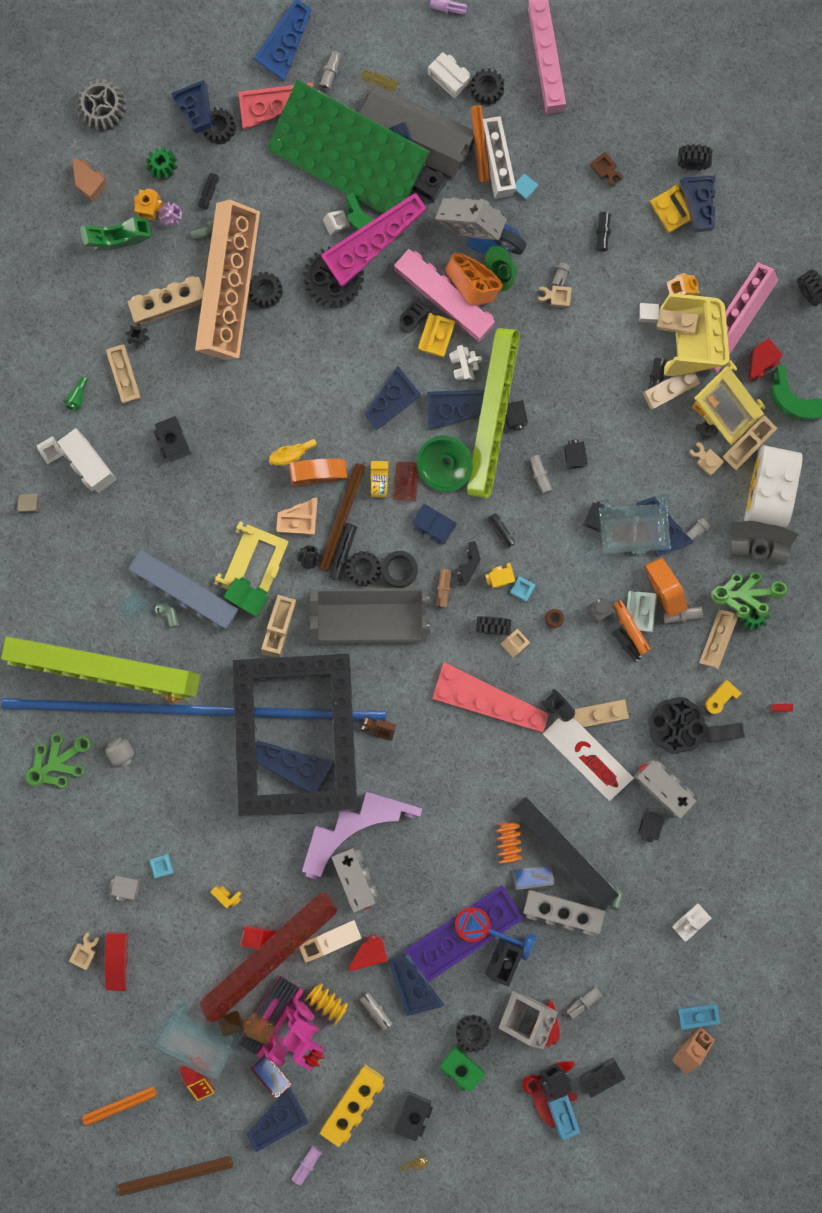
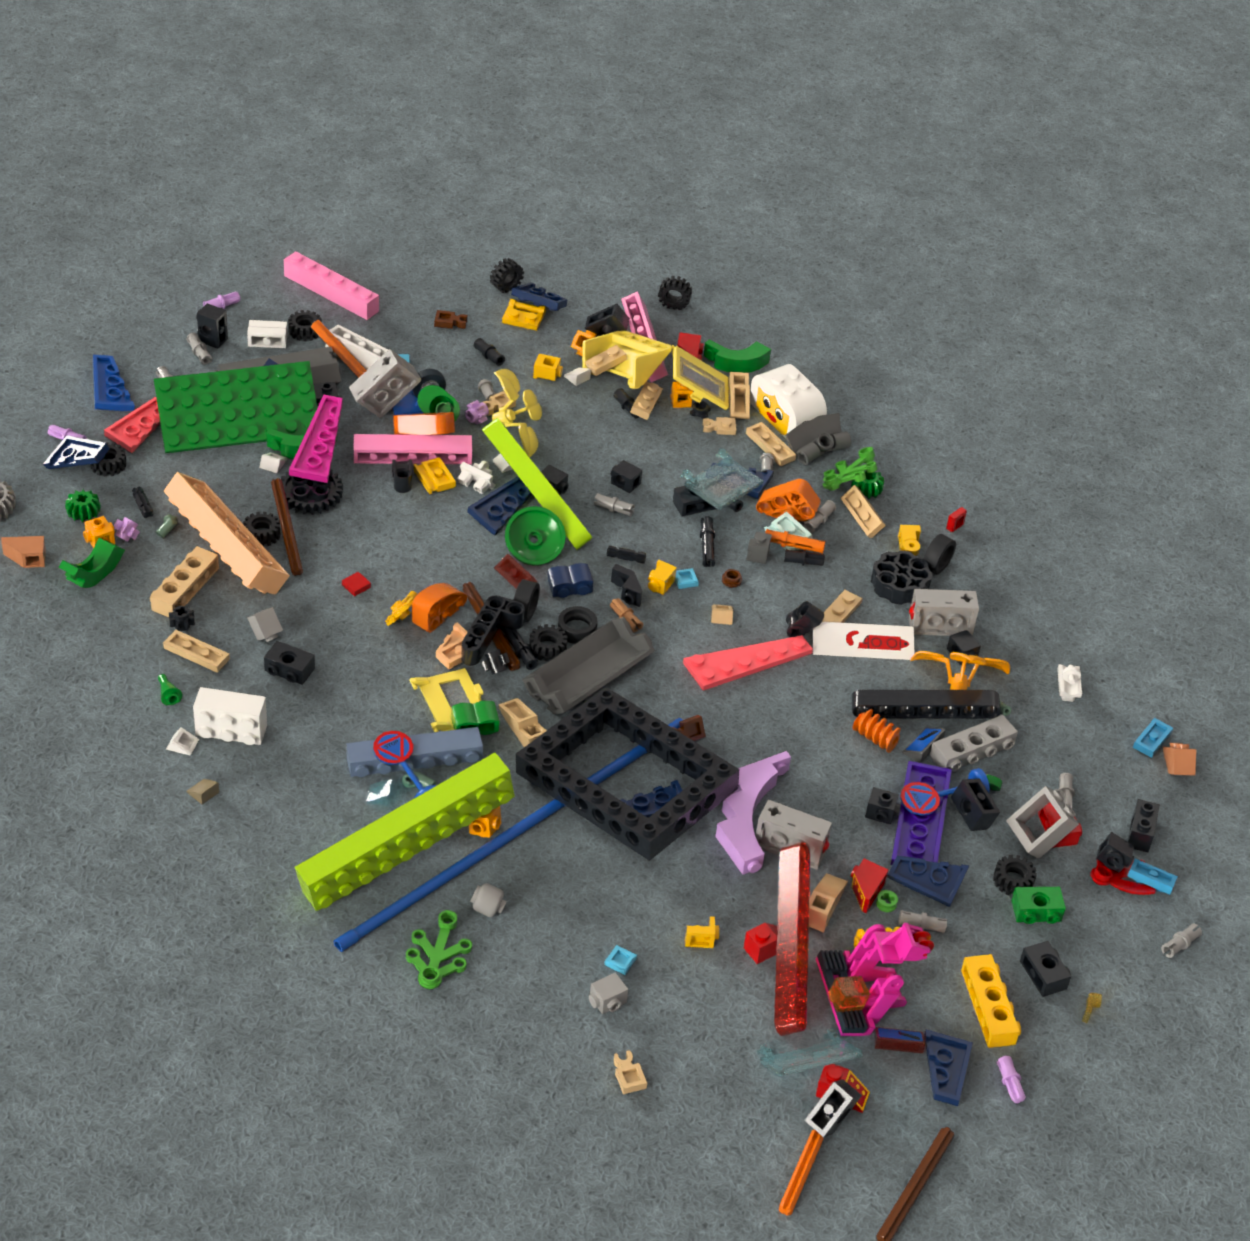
camera: 55 degrees left, 40 degrees down
(116, 960) = (665, 1054): red slope -> none
(164, 582) = (396, 749): none -> piece
(168, 1093) = (833, 1108): none -> black brick
(184, 390) = (265, 624): none -> light grey brick
(211, 74) = (61, 433): none -> lavender axle
(231, 1023) = (819, 1024): dark brown slope -> none
(281, 304) = (286, 526): none -> reddish brown axle
(286, 398) = (356, 584): none -> red tile
(339, 521) = (495, 613): none -> black beam
(364, 975) = (881, 903): none -> bright green bush
(379, 479) = (492, 581): yellow leg -> none
(379, 520) = (528, 595): none -> black tyre
(380, 80) = (210, 366): clear yellow axle -> none
(385, 50) = (199, 348): none -> light grey pin
(393, 398) = (445, 531): dark blue wing -> none
(407, 37) = (212, 325): none -> black brick
(442, 899) = (882, 806): none -> black brick
(493, 625) = (694, 604): black tyre -> none
(527, 294) = (477, 412): none -> lavender gear
(527, 1176) = (1181, 940): none -> light grey pin
(539, 951) = (994, 783): none -> green tile
(544, 314) = (506, 416): none -> light yellow plant
(570, 571) = (707, 536): none -> black pin
(610, 856) = (960, 681): none -> light orange plant
(629, 282) = (547, 367): none -> yellow brick
(718, 281) = (607, 321): none -> black brick
(723, 511) = (771, 443): none -> tan plate

